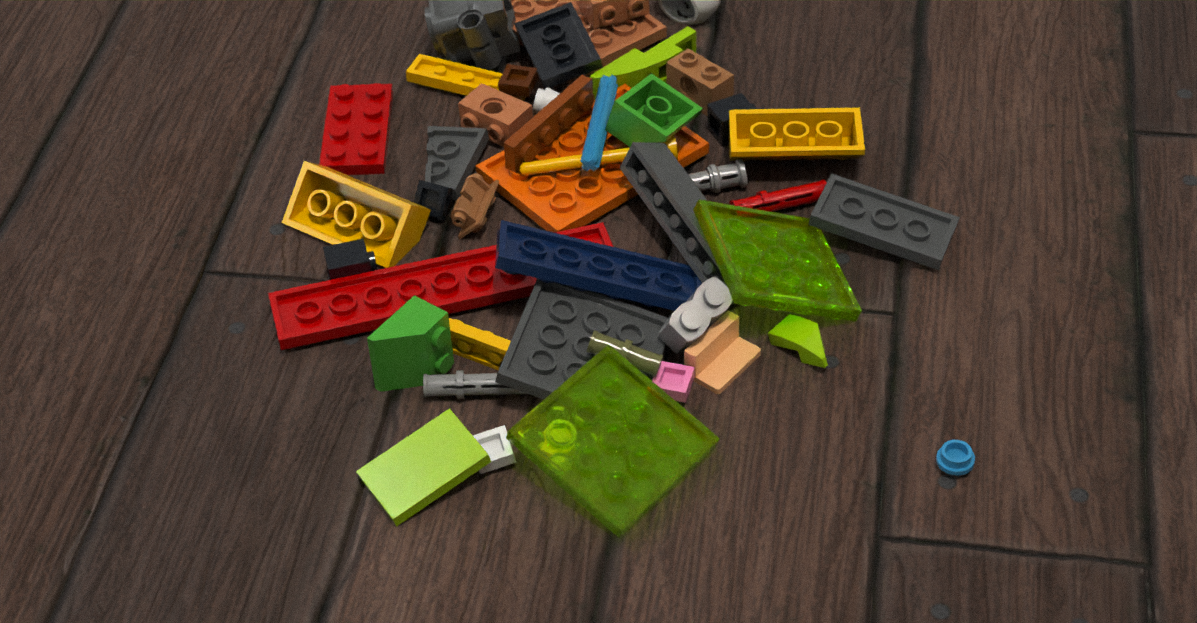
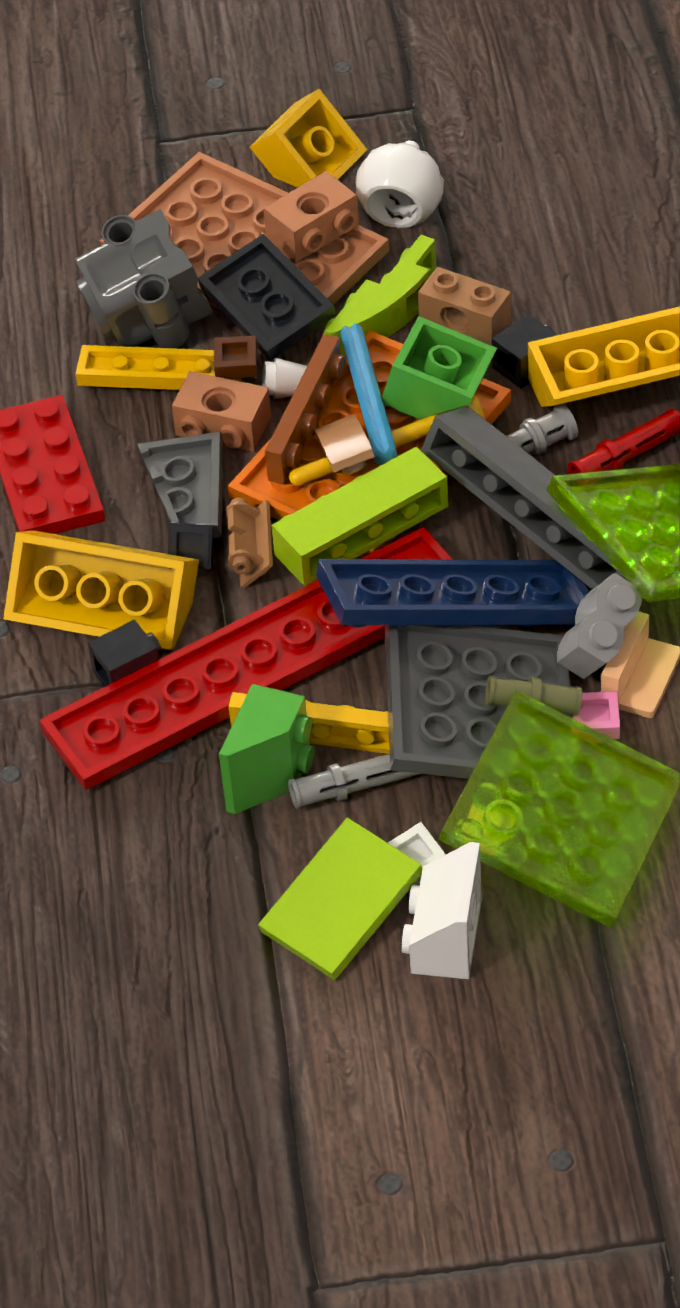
camera: 15 degrees left, 5 degrees up
(494, 497) = (445, 915): none -> white slope
(560, 199) = (361, 514): none -> lime brick
(564, 152) = (345, 445): none -> medium nougat slope

